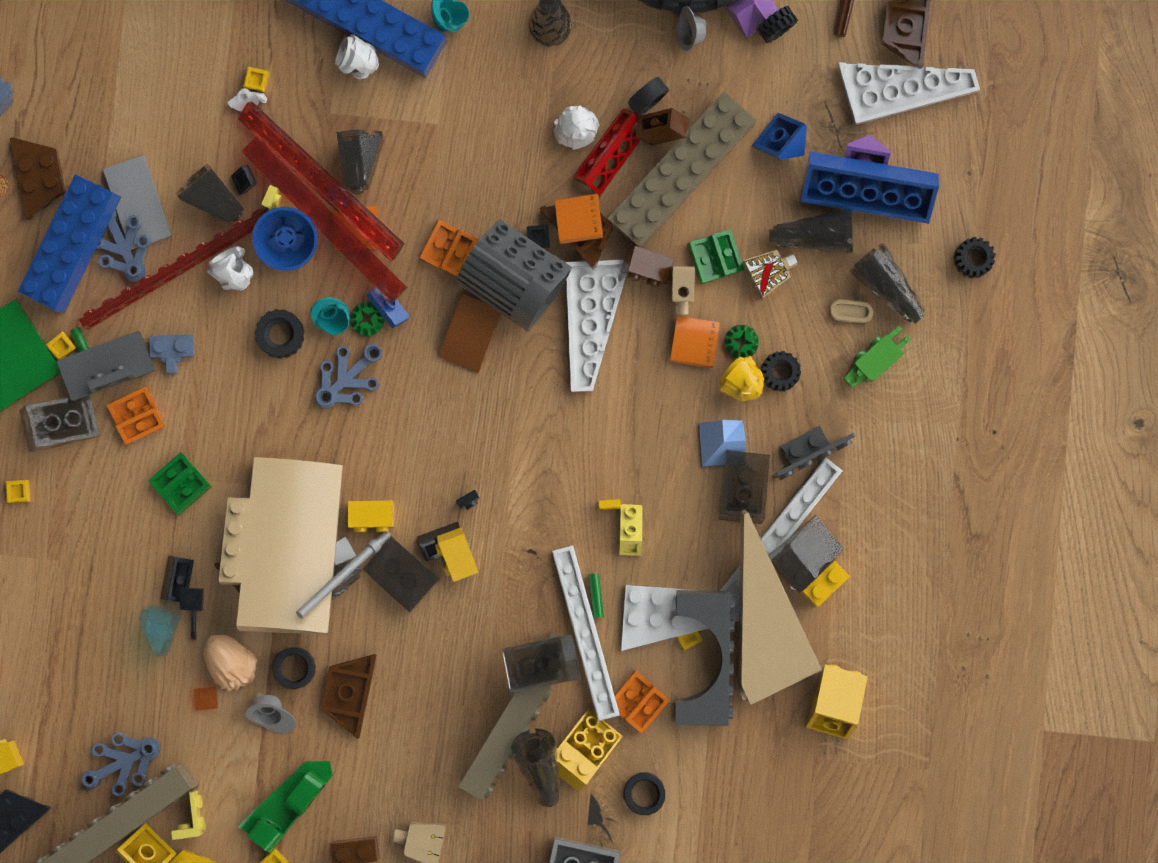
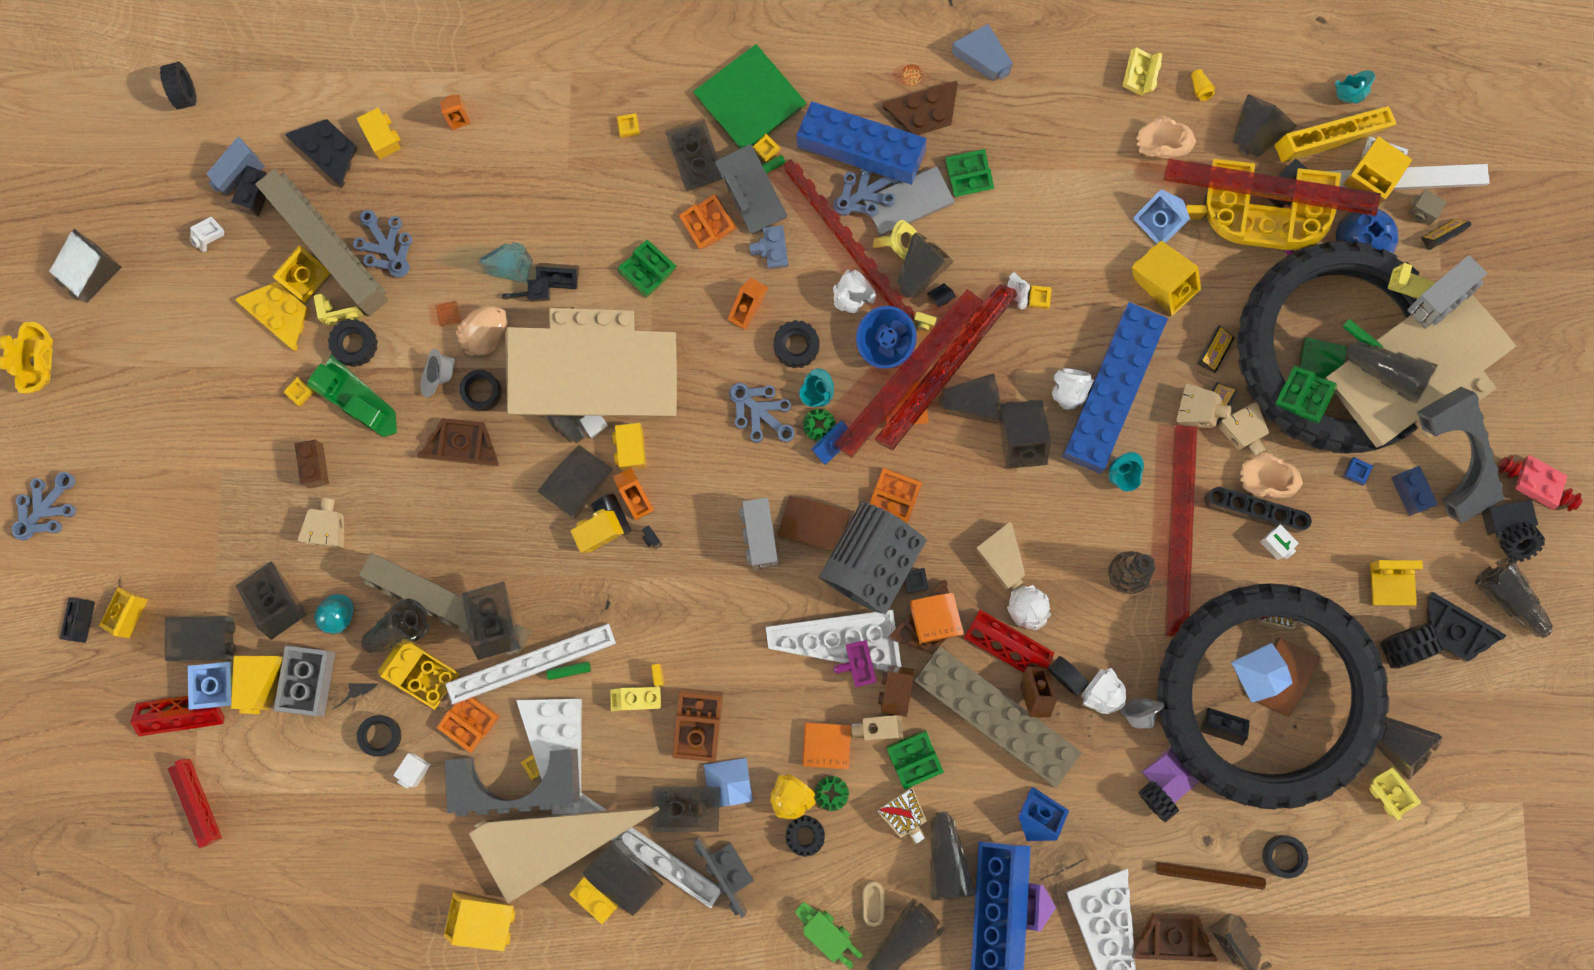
camera: 90 degrees right, 5 degrees down
(114, 136) = (969, 173): none -> green slope
(166, 212) = (895, 238): none -> light yellow piece
(210, 802) = (341, 331): none -> black tyre
(230, 380) = (747, 303): none -> orange slope
(371, 549) = (597, 450): light grey bar -> none
(399, 110) = (1024, 434): none -> clear smoke slope
(420, 515) = (633, 493): none -> orange slope
(476, 387) = (759, 534): none -> light grey brick
(515, 834) = (334, 614): none -> teal piece
(523, 146) = (1003, 557): none -> tan slope
(616, 300) = (859, 664): none -> magenta plate
(662, 468) = (697, 725): none -> dark orange slope
(668, 62) = (1105, 693): none -> white helmet
(683, 761) = (411, 770): none -> white brick

